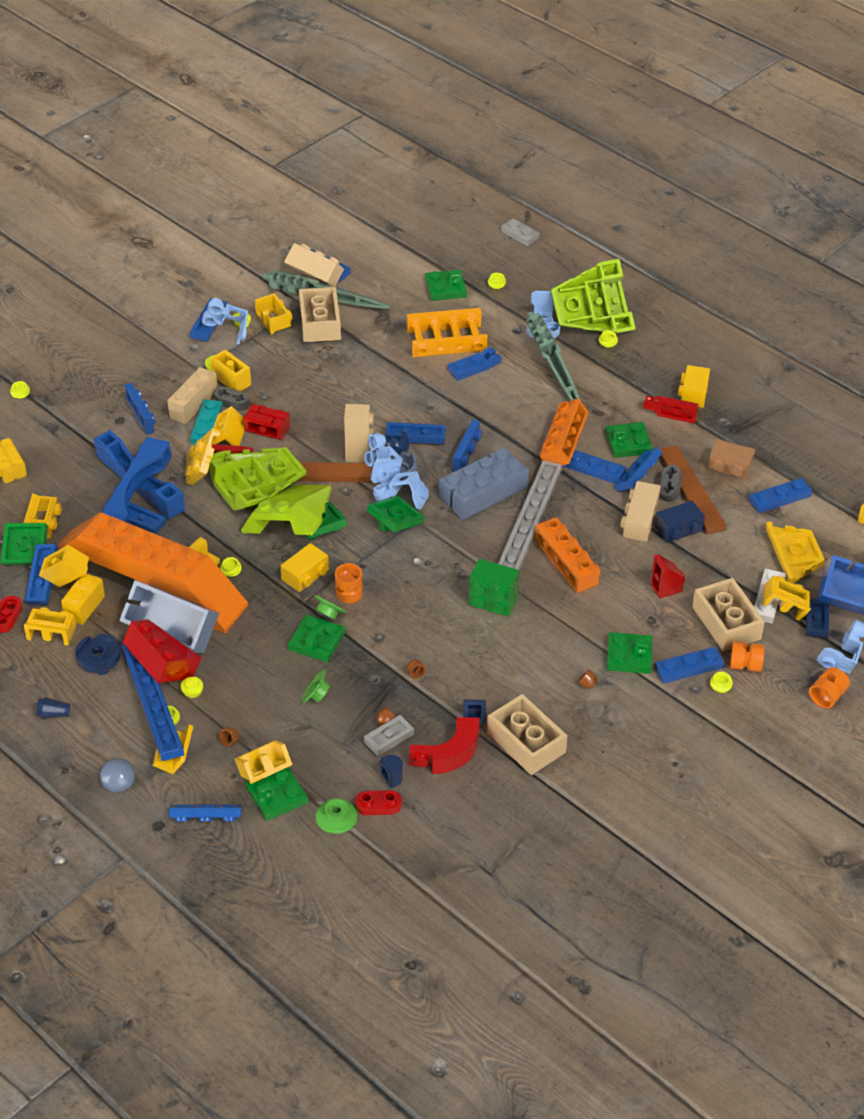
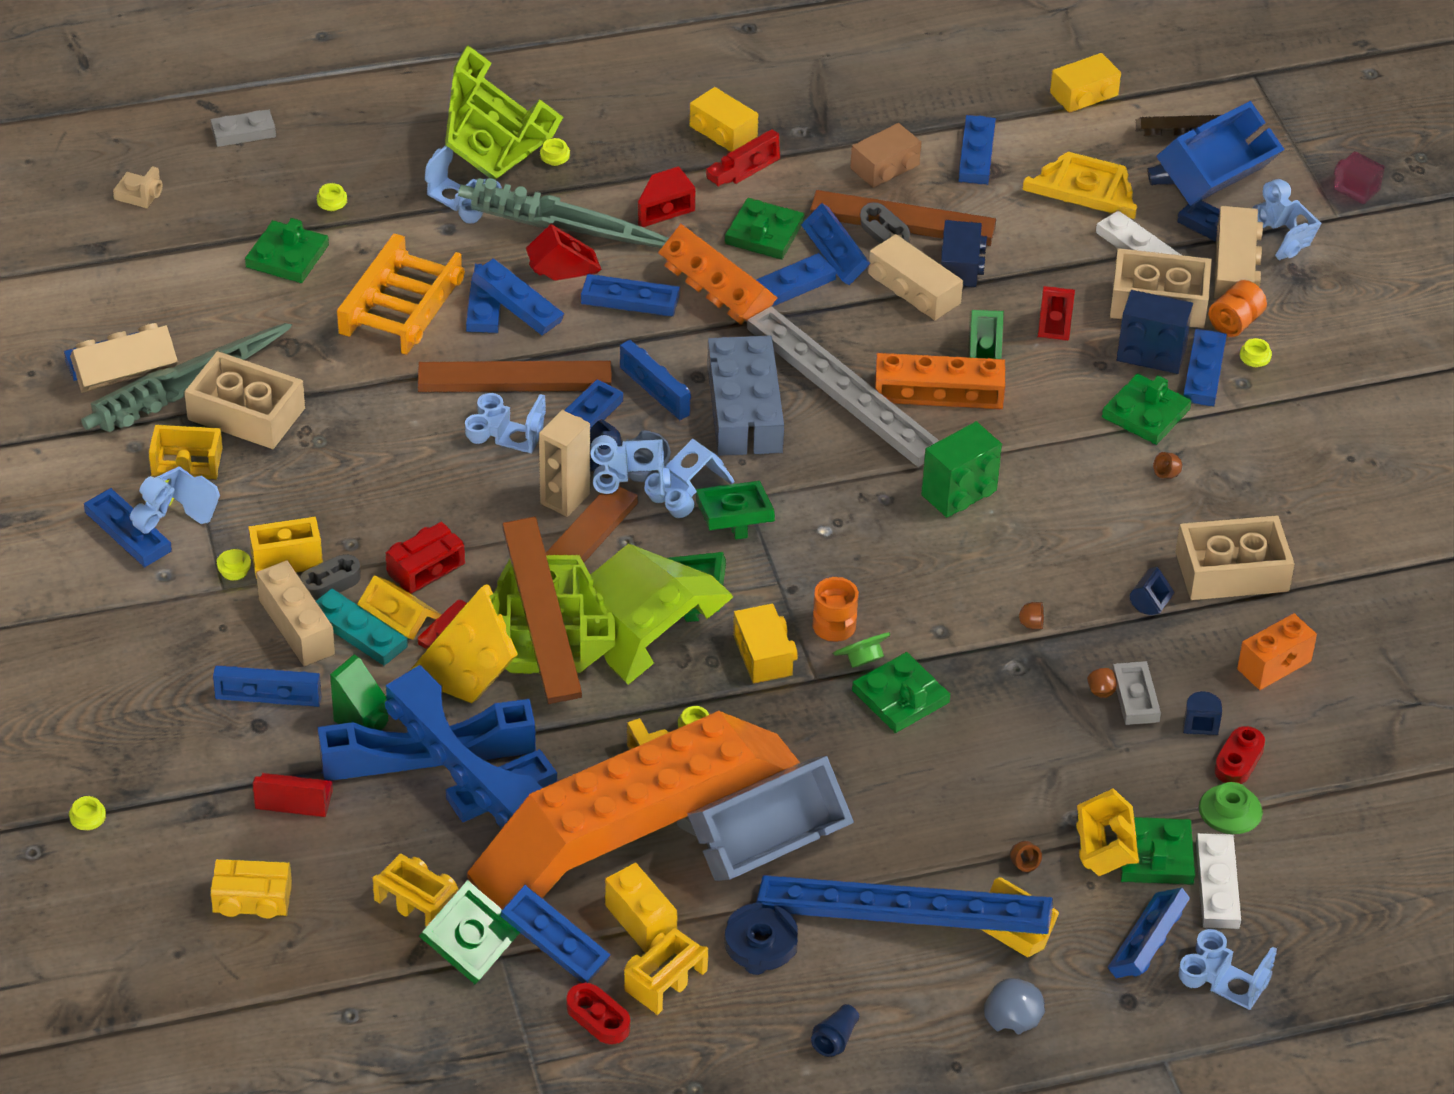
camera: 60 degrees left, 0 degrees up
(64, 566) = (589, 889): yellow brick -> none
(79, 448) = (292, 794): none -> red panel
(145, 427) = (357, 696): none -> green slope
(160, 652) = (831, 857): red wedge -> none
(192, 687) = (900, 859): neon yellow plate -> none
(201, 865) = (1216, 969): none -> light blue piece
(249, 471) = (542, 610): none -> dark orange tile
(272, 829) = (1218, 881): none -> white plate
(317, 688) = (993, 729): bright green piece -> none
(387, 407) = (494, 421): none -> light blue piece
(428, 398) = (511, 376): none -> dark orange tile
(442, 220) = (139, 189): none -> tan bracket
(449, 755) = (1207, 631): red arch -> none
(468, 784) = (1276, 651): none -> orange brick
(480, 371) = (517, 296): none -> blue plate
(524, 411) = (630, 295): none -> blue plate
(528, 374) = (561, 255): none -> red slope
(609, 390) = (666, 197): none -> red slope
(617, 559) = (985, 334): none -> green slope
(682, 624) = (1154, 331): none -> dark blue brick
(790, 595) = (1170, 224): yellow window -> none
(793, 636) = (1237, 248): none -> tan brick
(829, 687) = (1335, 266): orange wheel -> none

